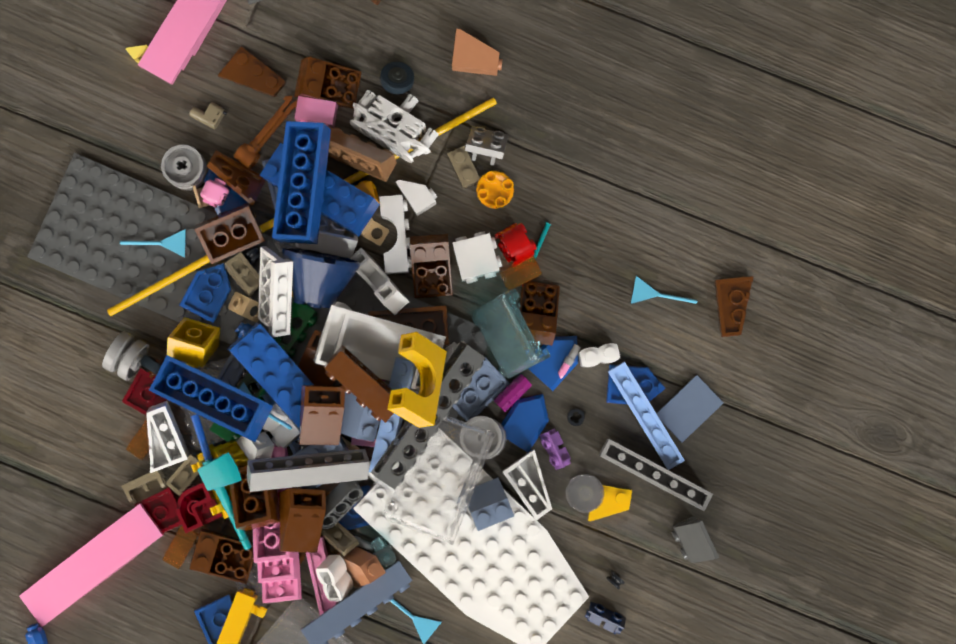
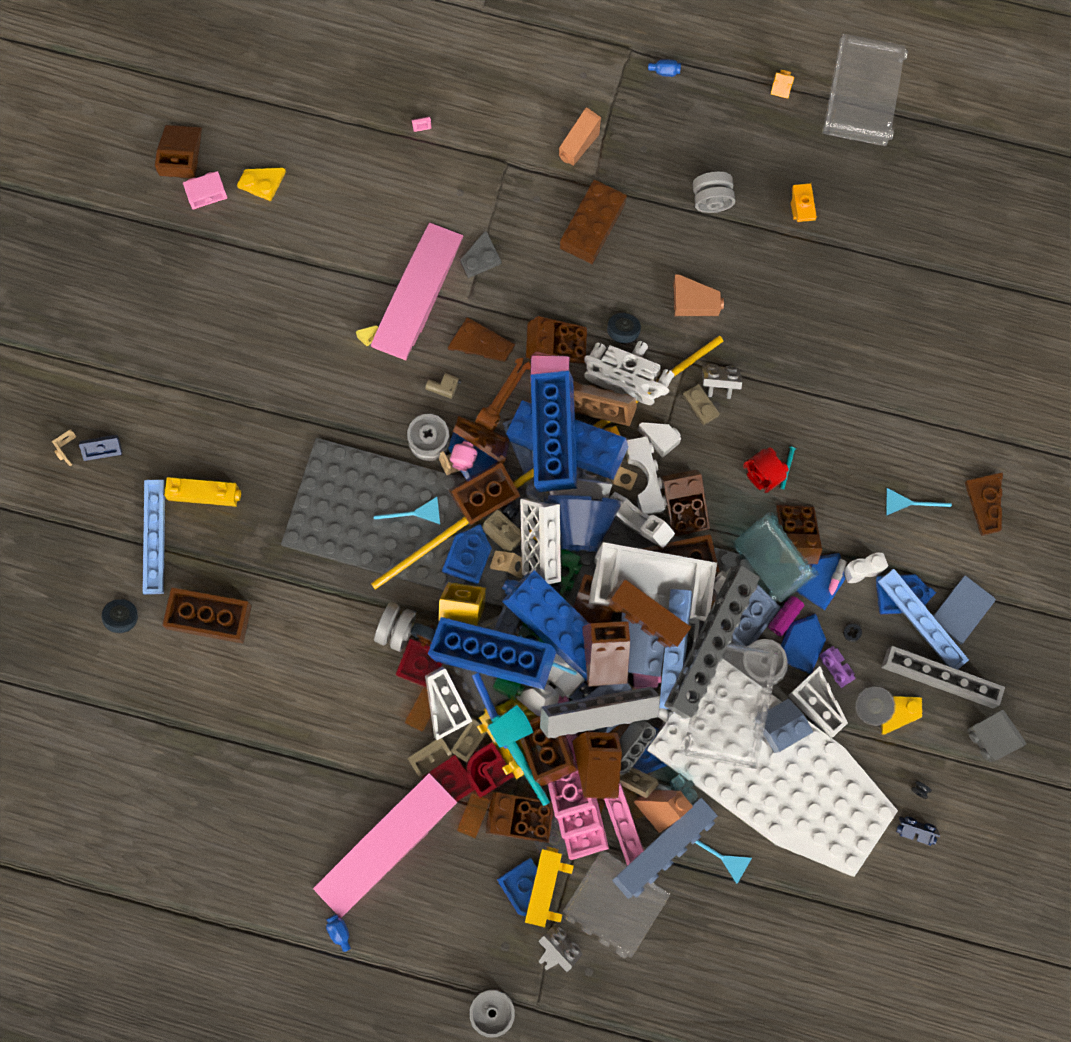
camera: 10 degrees left, 10 degrees down
(334, 578) = (640, 822): white brick -> none
(430, 361) = (708, 623): yellow arch -> none
(476, 257) = (729, 487): white brick -> none
(495, 189) = (735, 422): light orange dish -> none
(521, 274) = (775, 498): clear orange tile -> none

